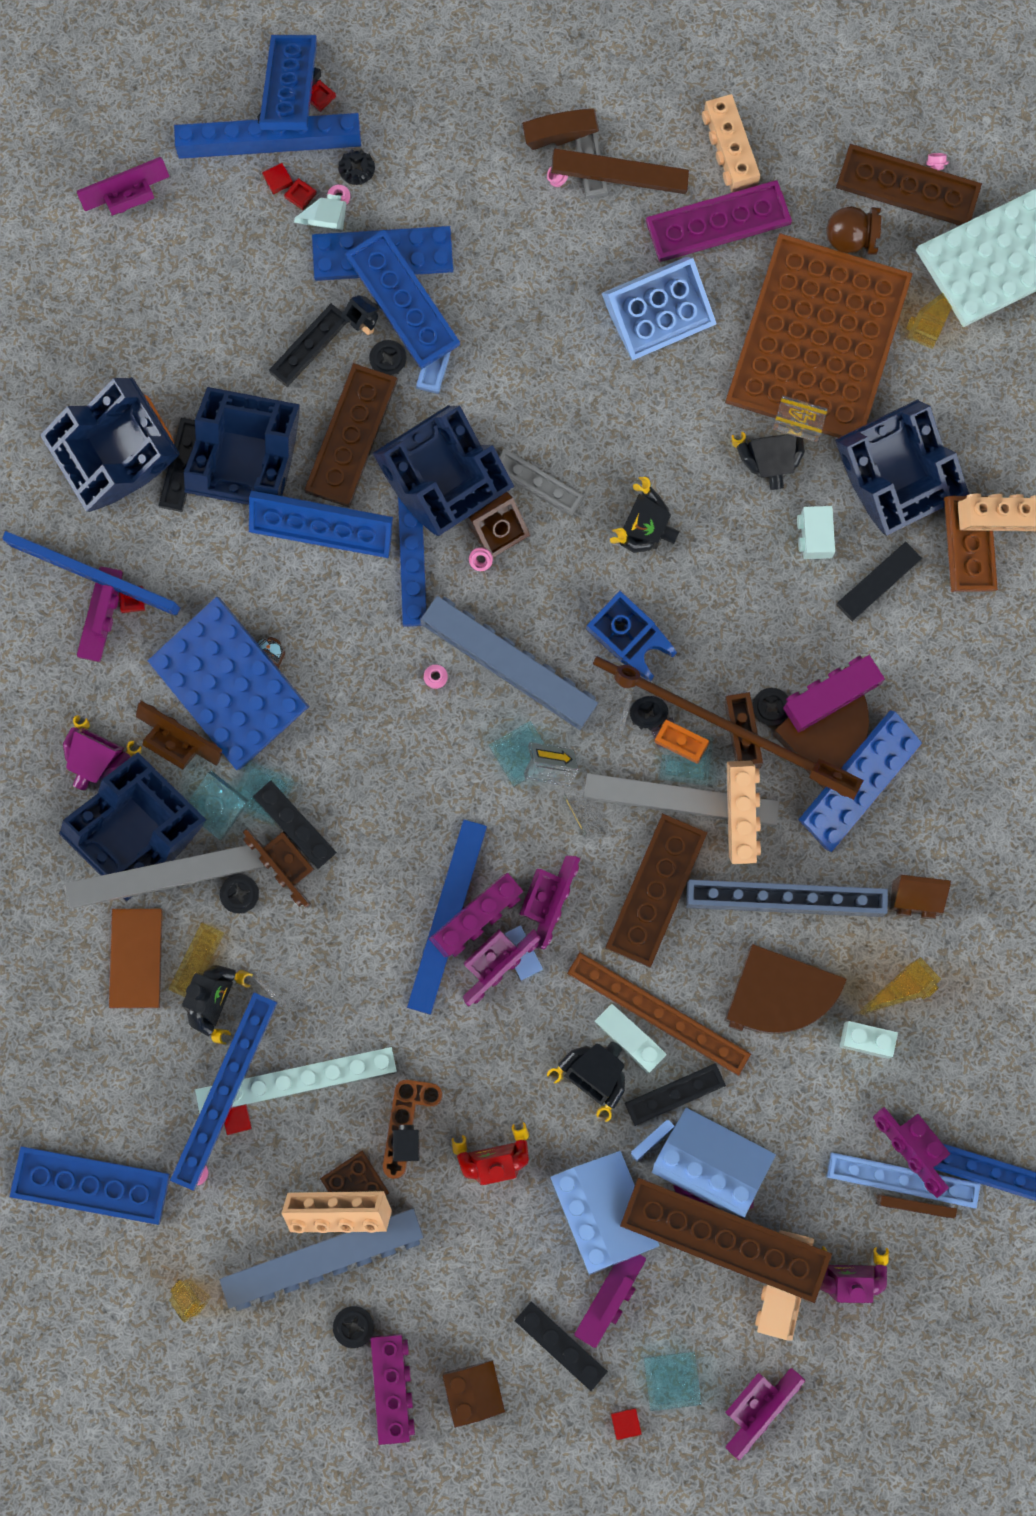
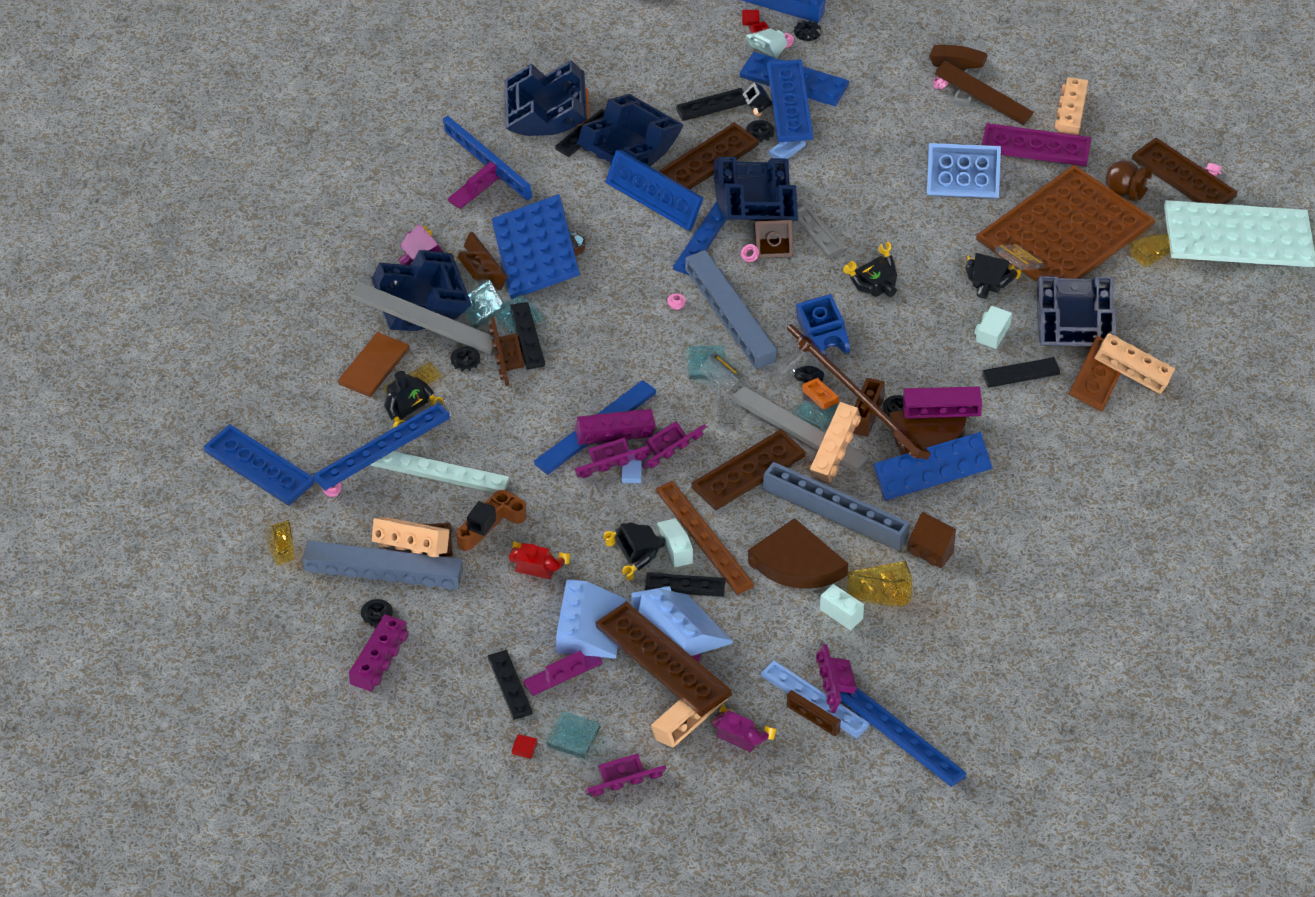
camera: 30 degrees right, 30 degrees down
(130, 604) = (501, 187): red tile -> none
(238, 1120) = (379, 473): red tile -> none
(473, 1393) = (431, 679): reddish brown slope -> none

